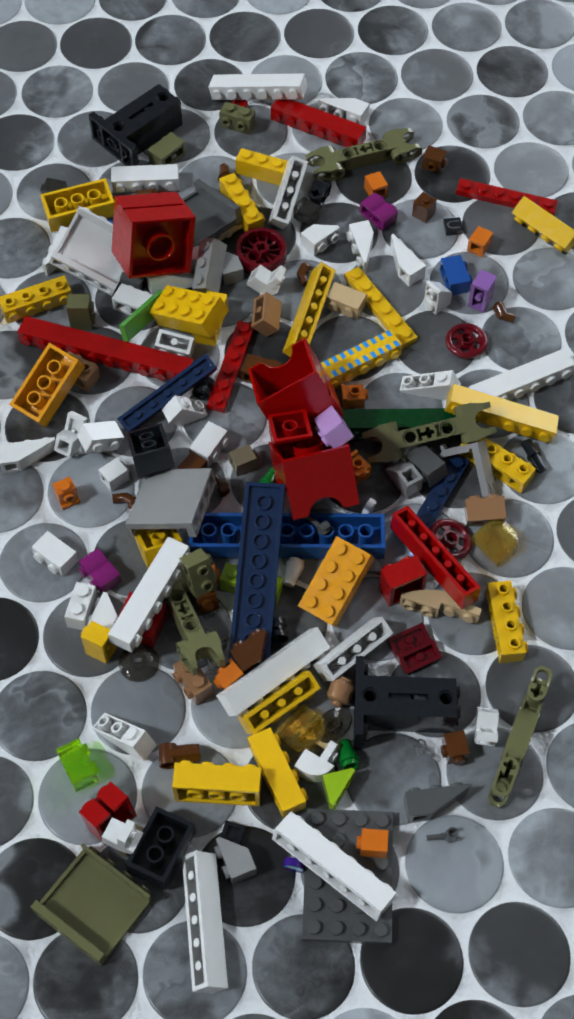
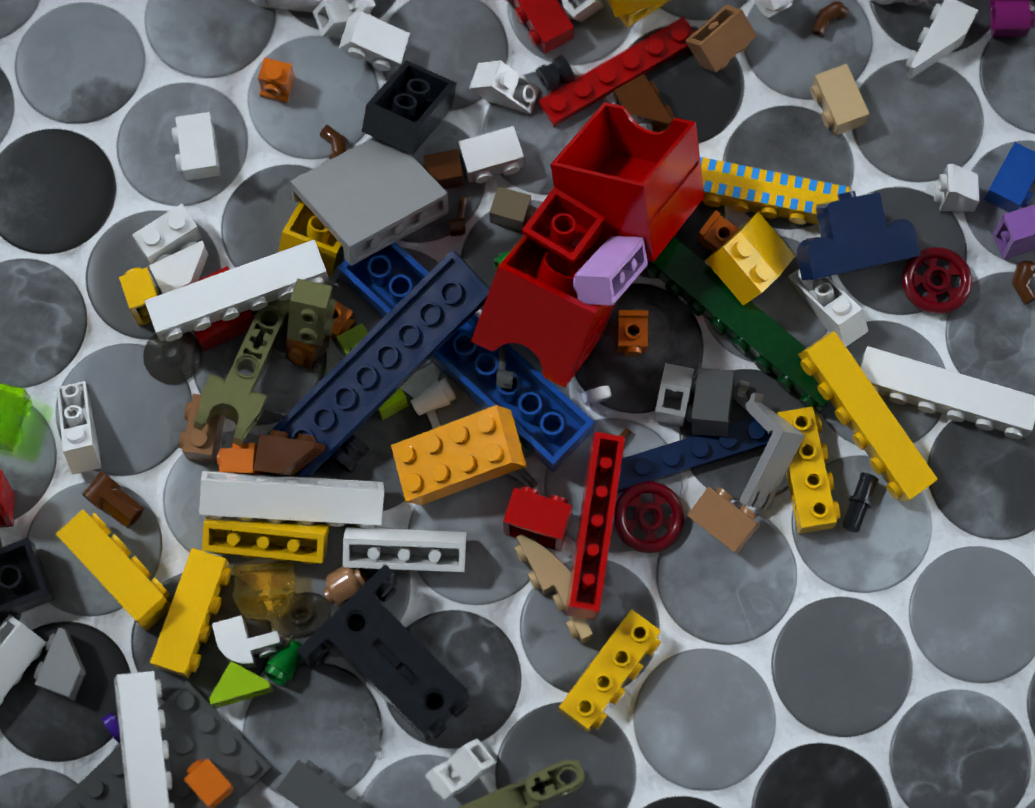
camera: 45 degrees right, 15 degrees up
(99, 571) = (225, 210): magenta brick -> none
(114, 474) = (349, 101): white brick -> none
(159, 398) = (509, 48): dark blue plate -> none
(233, 832) = (89, 636): black tile -> none
(310, 306) = (777, 77): yellow brick -> none
(380, 392) = (751, 259): none -> yellow slope
(381, 307) = (880, 128): yellow plate -> none
(407, 264) = (967, 115): white slope -> none
(414, 648) = (478, 608): dark red slope -> none
(415, 346) = (855, 237): none -> dark blue brick
(455, 747) = (404, 761): reddish brown brick -> none
(463, 424) = (794, 390): olive piece -> none
(496, 541) = (702, 568): clear yellow slope -> none

